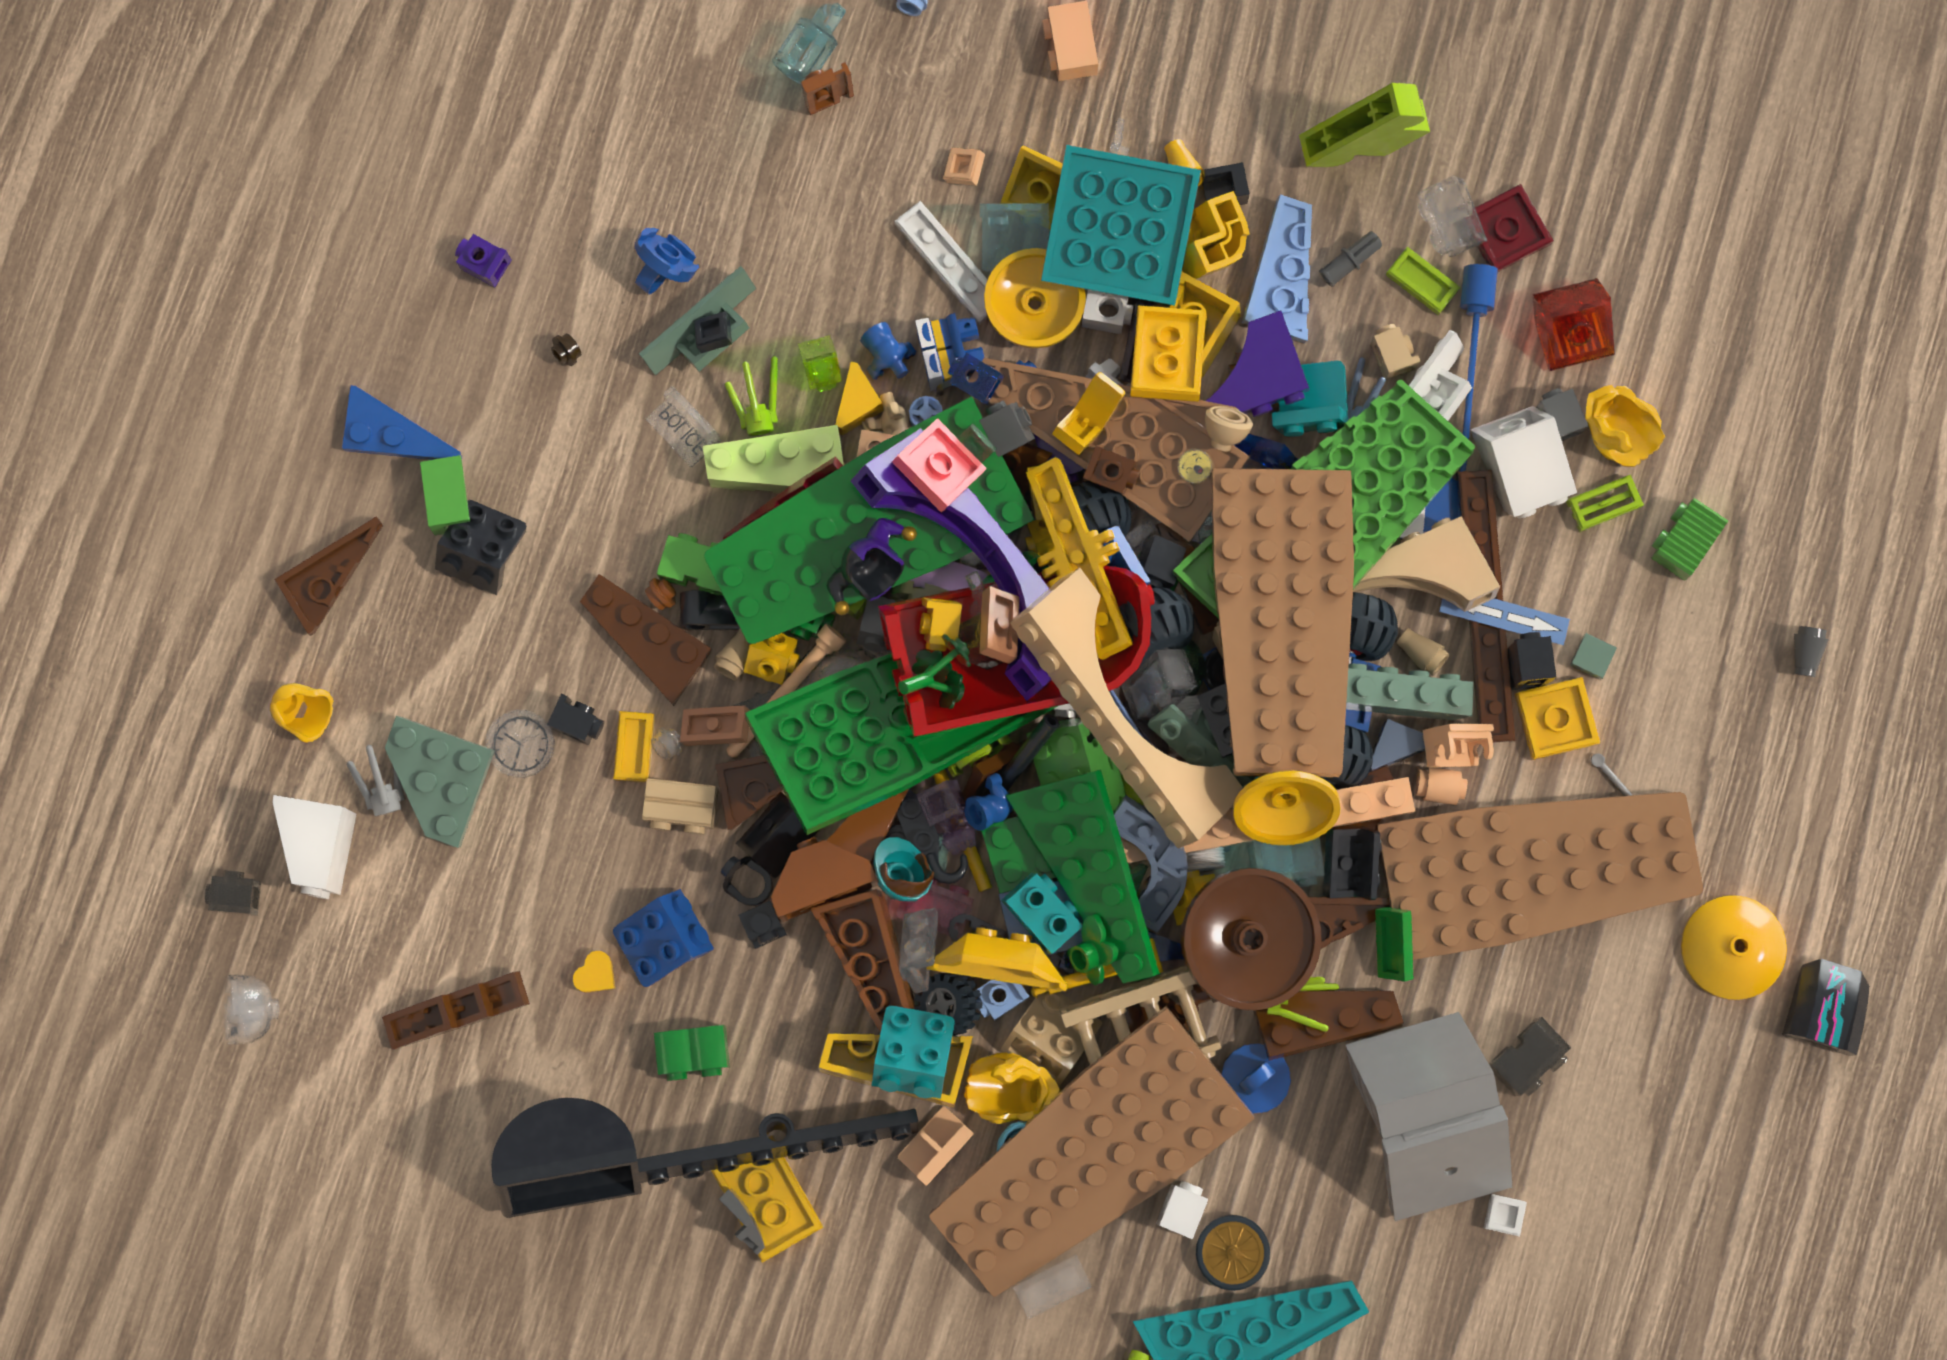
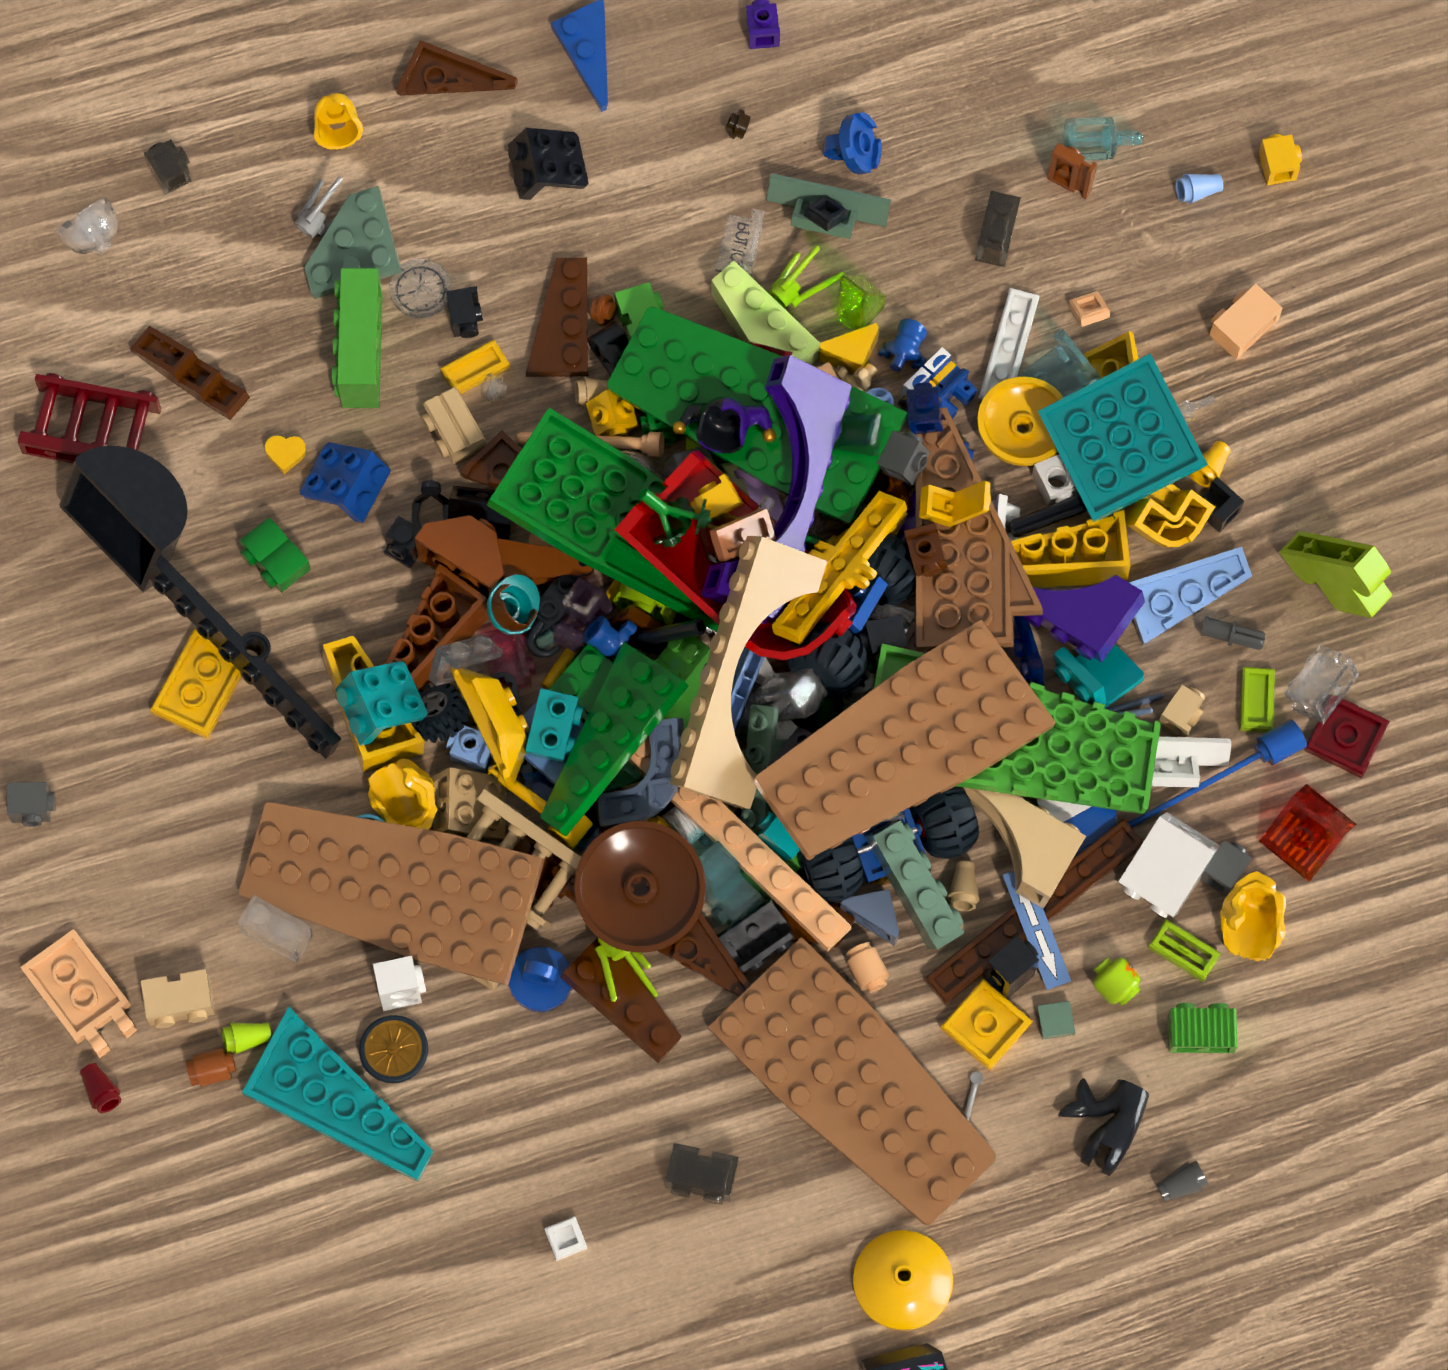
camera: 50 degrees right, 10 degrees down
(314, 843) = (243, 192): white slope -> none
(444, 493) = (567, 109): bright green panel -> none
(451, 1171) = (68, 447): none -> dark red fence
(531, 829) = (358, 338): none -> bright green brick
(714, 726) = (525, 406): nougat plate -> none
(749, 1231) = (168, 680): dark grey slope -> none
(833, 192) = (997, 228): none -> clear smoke brick
(935, 1145) = (324, 778): light nougat panel -> none
(939, 465) = (831, 412): plate -> none
(1093, 951) = (547, 780): green animal -> none
(1168, 353) = (1048, 535): yellow tile -> none
(1195, 466) = (974, 608): clear tile -> none
(1226, 426) = (1019, 606): tan brick -> none
(1286, 808) = (755, 837): yellow dish -> none
(1394, 944) = (717, 1010): green tile -> none
(1434, 1112) = (602, 1112): light grey container -> none
(1457, 744) = (907, 955): light nougat hinge -> none
(1597, 580) = (1116, 980): none -> lime head
(1730, 675) = (1127, 1104): none -> black piece

